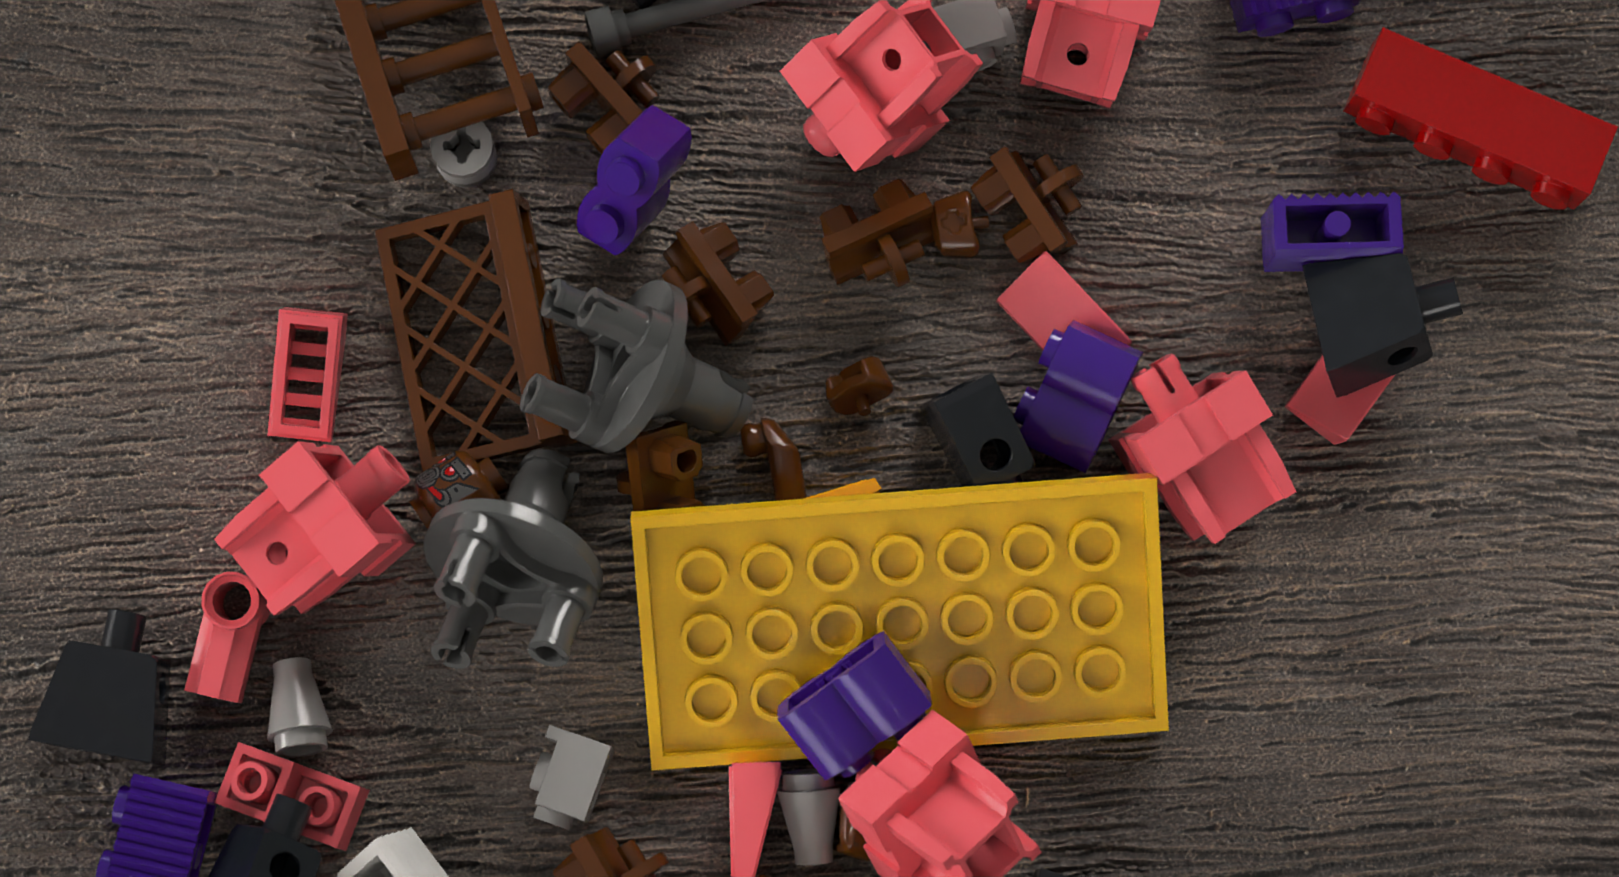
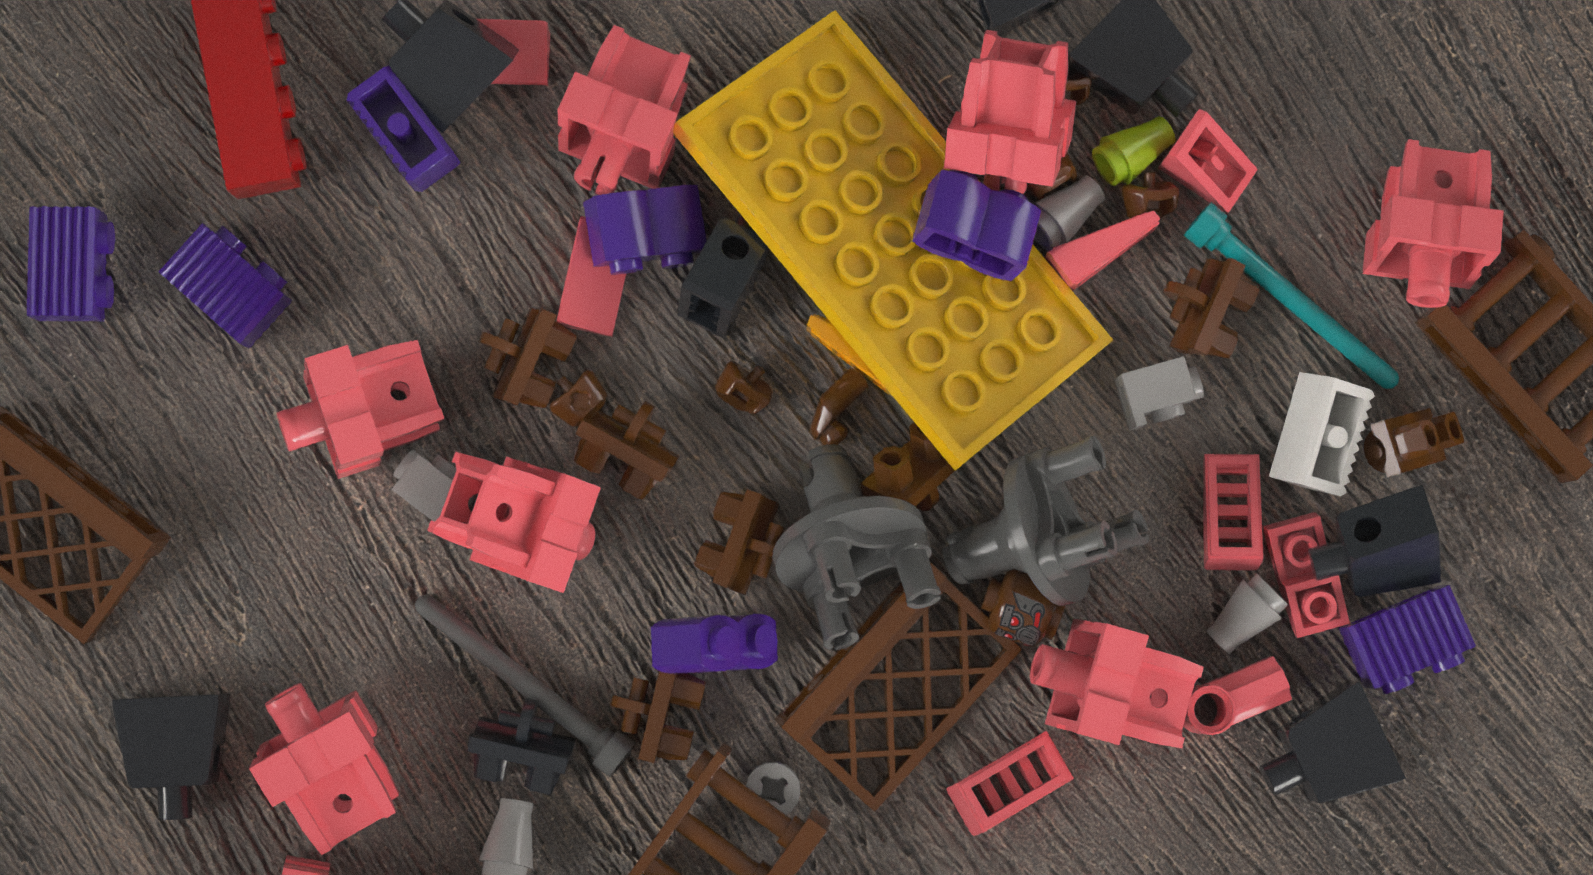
camera: 125 degrees left, 5 degrees up
(450, 801) = (1232, 557): none -> coral slope

